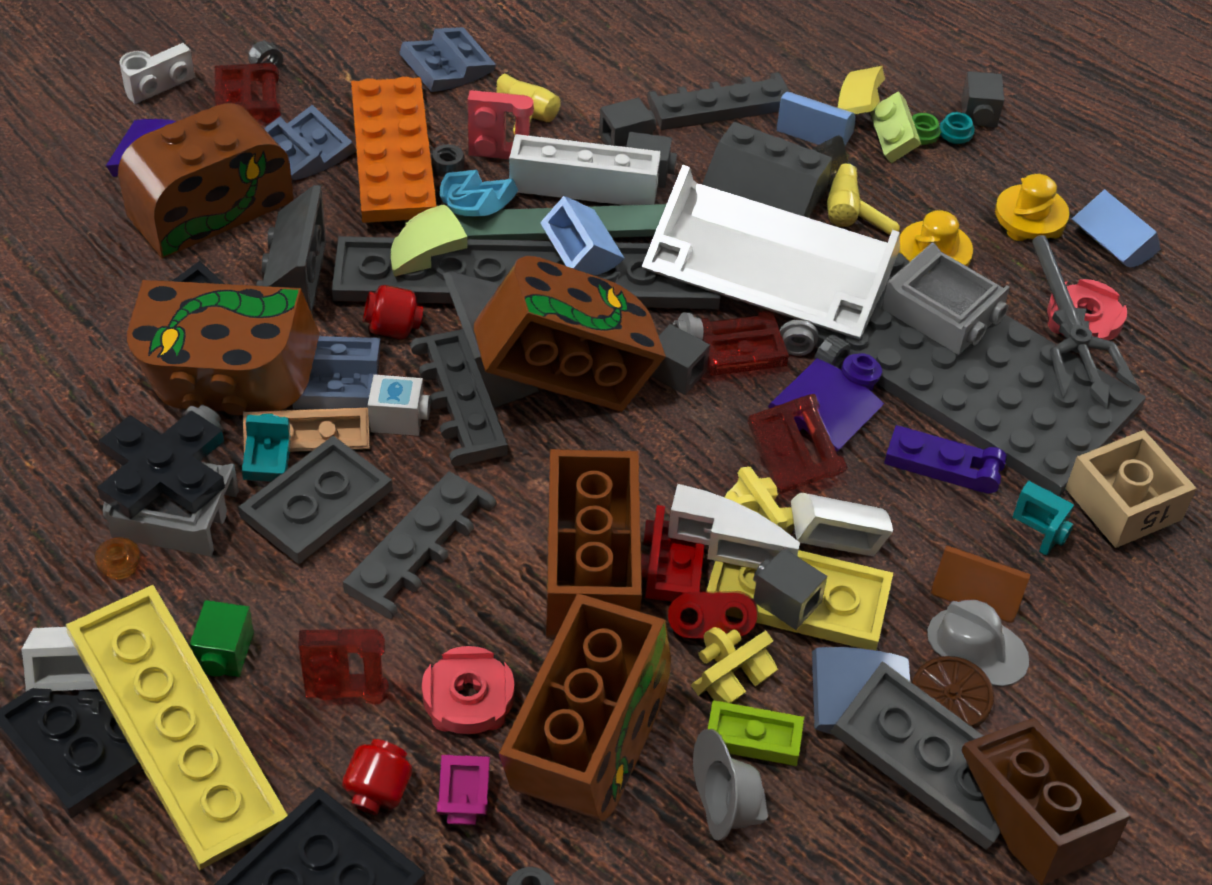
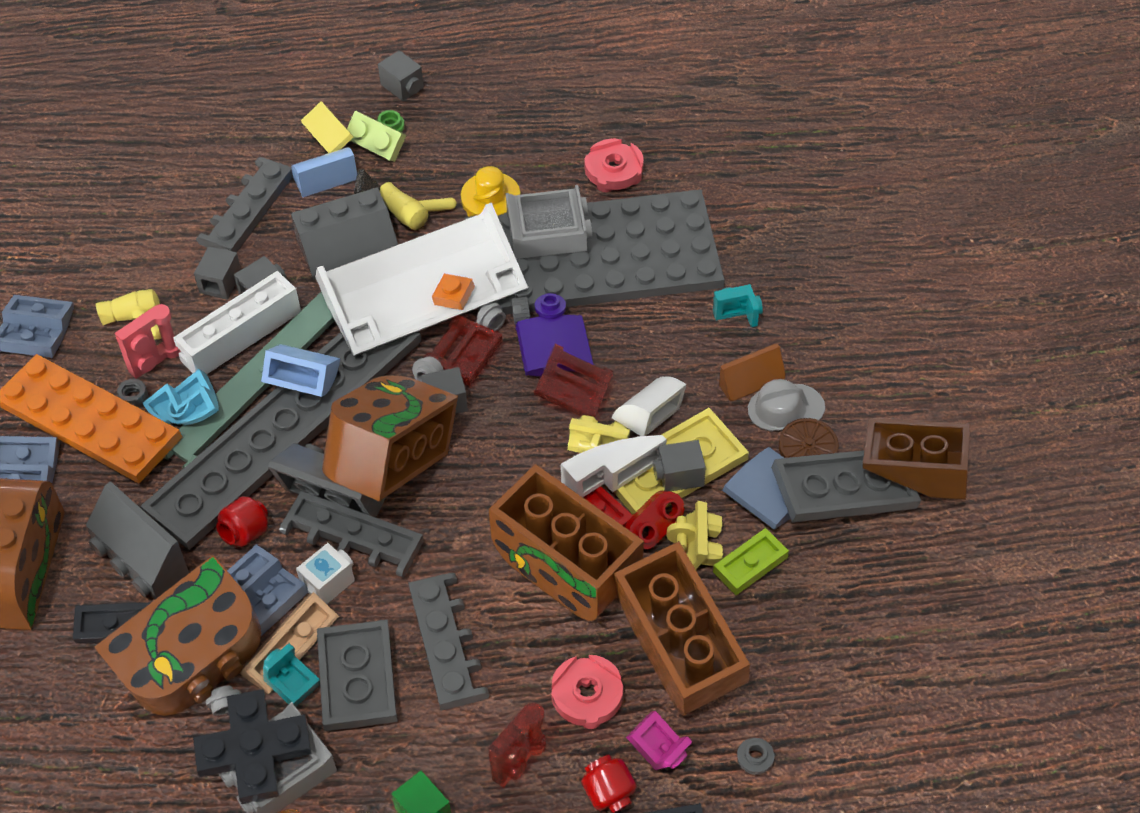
camera: 45 degrees left, 5 degrees up
(424, 236) = (204, 454): yellowish green brick -> none
(726, 786) = (779, 603): light grey piece -> none
(785, 284) = (453, 291): none -> orange plate
(946, 459) = (648, 319): dark purple plate -> none
(957, 128) = (408, 106): teal plate -> none
(1032, 209) = (512, 125): yellow plate -> none
(1077, 332) = (629, 181): dark grey piece -> none
(1118, 230) = (571, 99): light blue brick -> none
(1130, 488) = (760, 249): tan brick -> none

